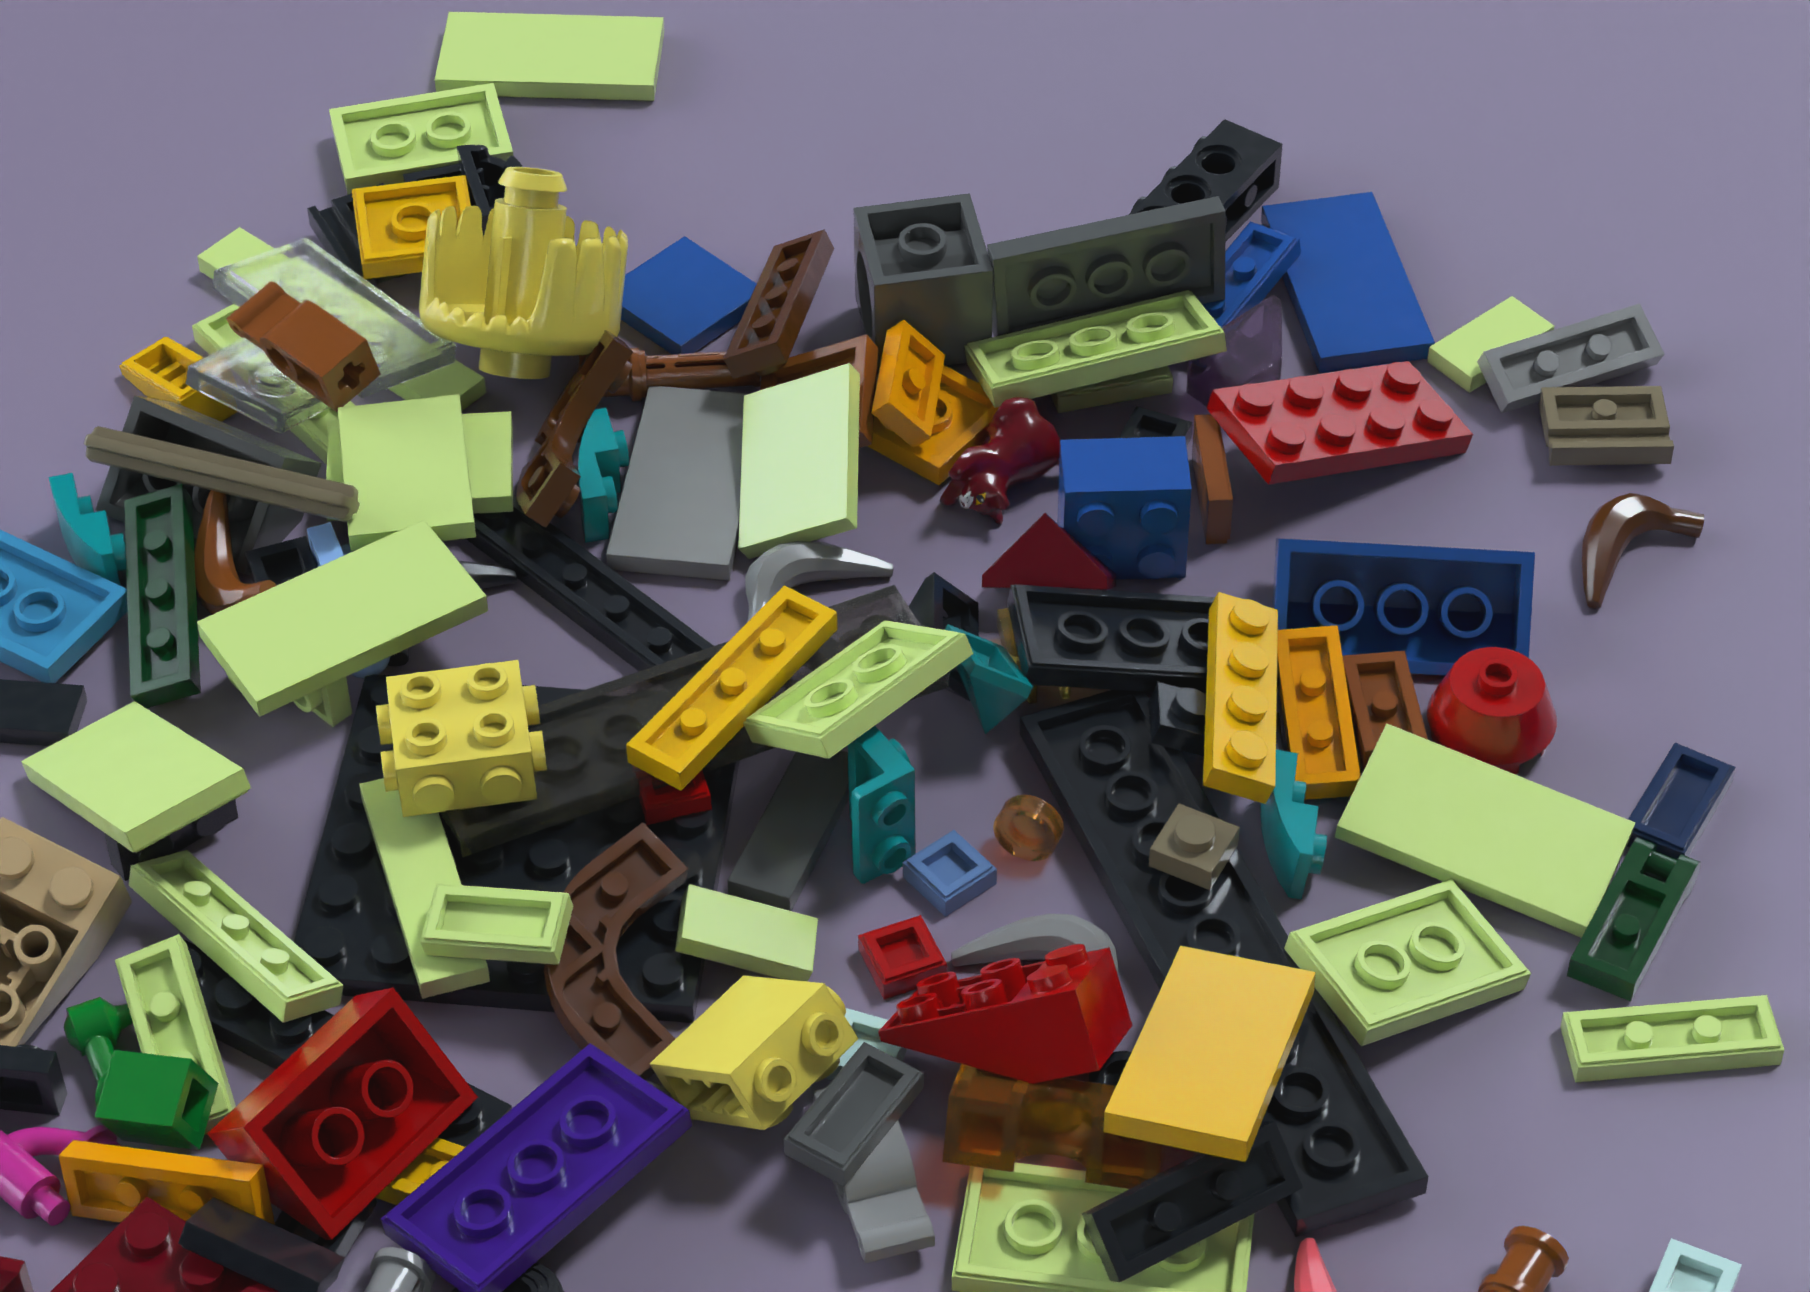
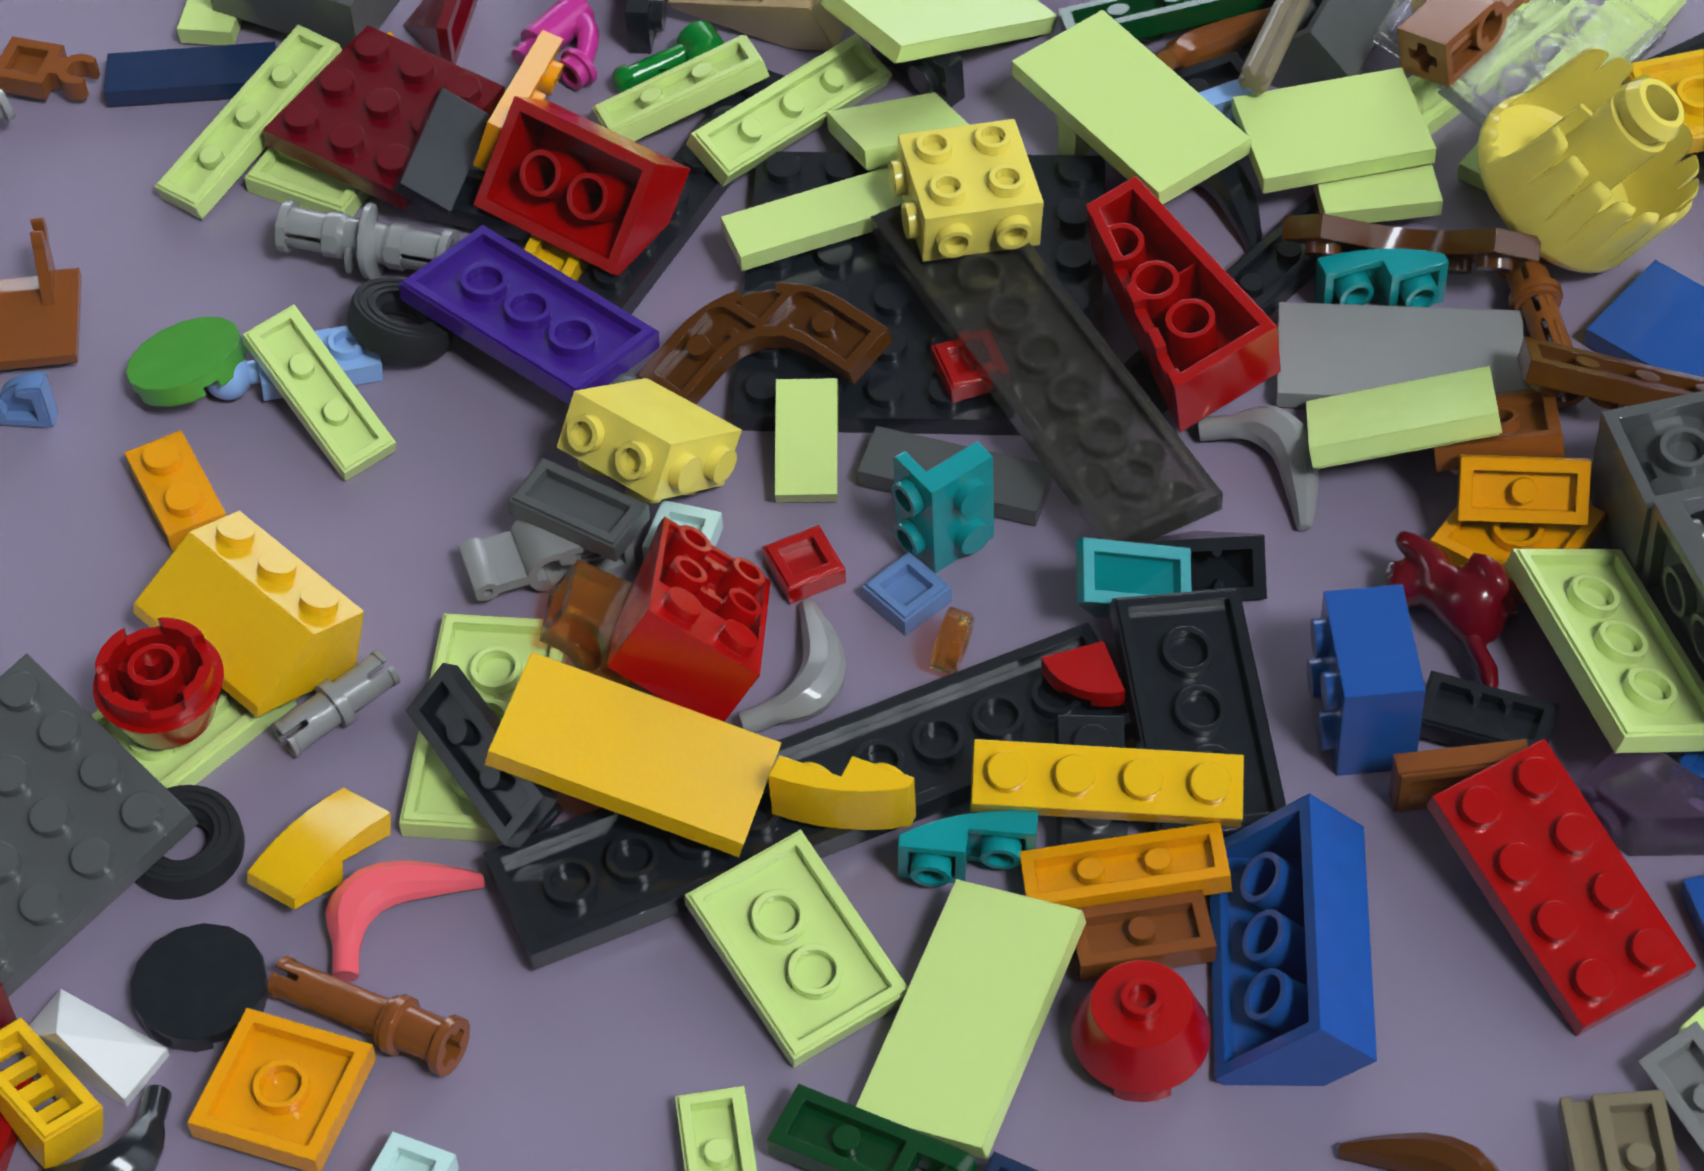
camera: 90 degrees right, 5 degrees up
(155, 1099) = (600, 77): green brick -> none
(301, 832) = (873, 129): none -> yellowish green tile
(497, 924) = (769, 246): yellowish green tile -> none
(628, 601) = (1183, 309): none -> red wedge
(731, 687) = (1051, 369): yellow plate -> none
(857, 688) = (1041, 450): yellowish green tile -> none
(1048, 558) = (1284, 637): dark red slope -> none
(1097, 711) = (1085, 674): none -> red tile
(1194, 846) = (921, 753): dark tan plate -> none
(1251, 872) = (861, 799): none -> yellow slope

